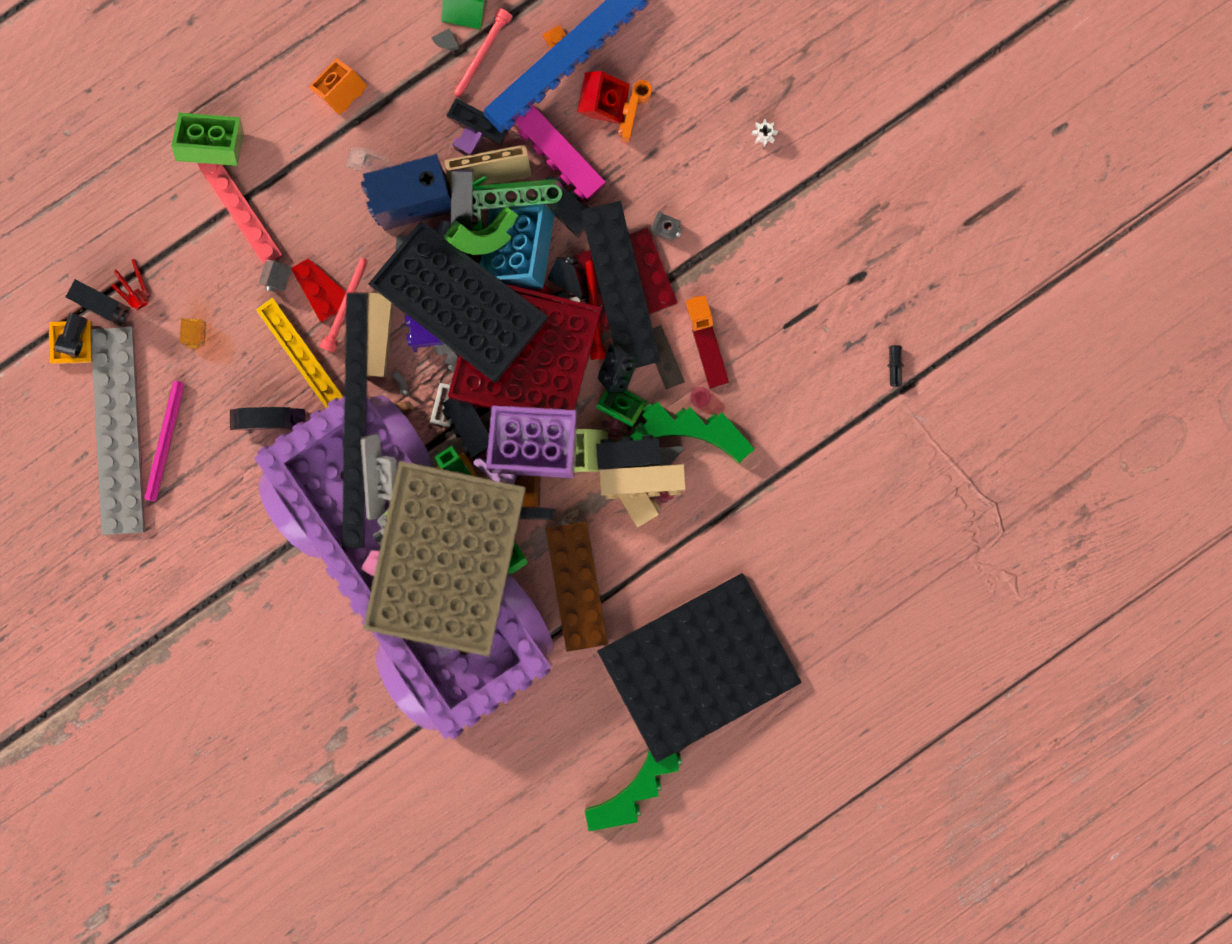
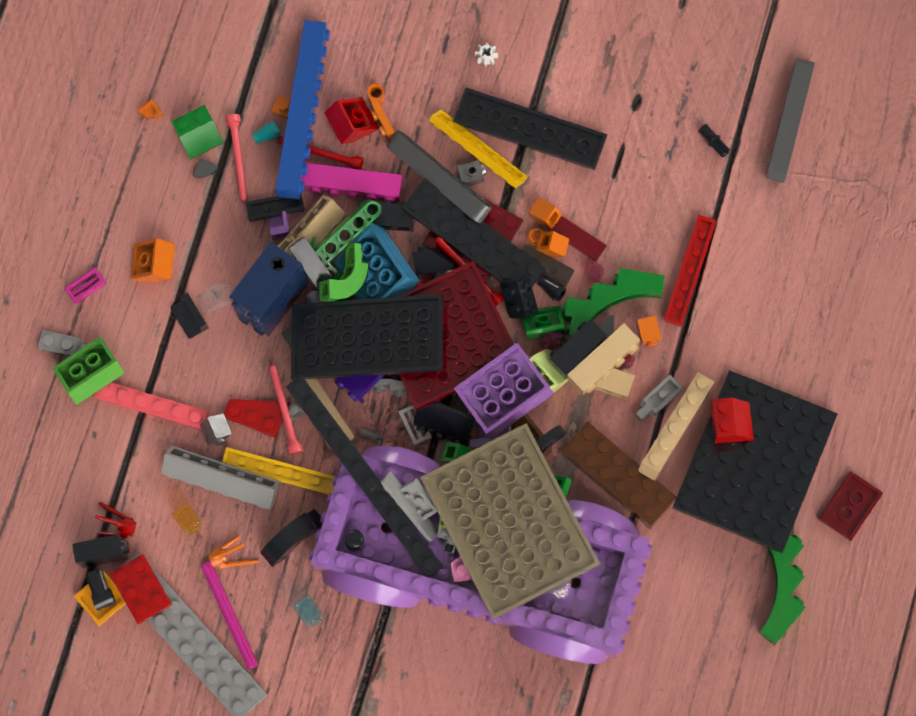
camera: 30 degrees left, 10 degrees down
(107, 361) = (140, 589): none -> red plate
(194, 386) = (219, 556): none -> orange plant
(206, 95) = (59, 343): none -> light grey hinge
(230, 491) = (308, 611): none -> clear light blue brick
(246, 319) = (220, 477): none -> light grey brick
(284, 55) = (102, 282): none -> dark pink tile
(308, 466) = (354, 540): none -> black piece
(331, 159) = (189, 317): none -> black panel
(524, 50) = (267, 132): none -> teal cone
(576, 137) = (353, 162): none -> red piece
(635, 208) = (439, 176): none -> dark grey beam
(653, 382) = (552, 288): none -> black cone
(656, 586) = (676, 426): none -> tan arch
(665, 548) = (659, 398): none -> light grey hinge
(676, 327) = (533, 236): none -> orange plate
(683, 345) = (552, 244): none -> orange brick
(690, 210) = (478, 148): none -> yellow plate
(702, 485) = (648, 331): none -> orange brick
(706, 619) = (731, 420): none -> red slope
(747, 767) = (850, 506): none -> dark red tile
(748, 228) = (530, 128): none -> black plate
(781, 461) = (690, 270): none -> red plate
(975, 400) = (790, 120): none -> dark grey beam

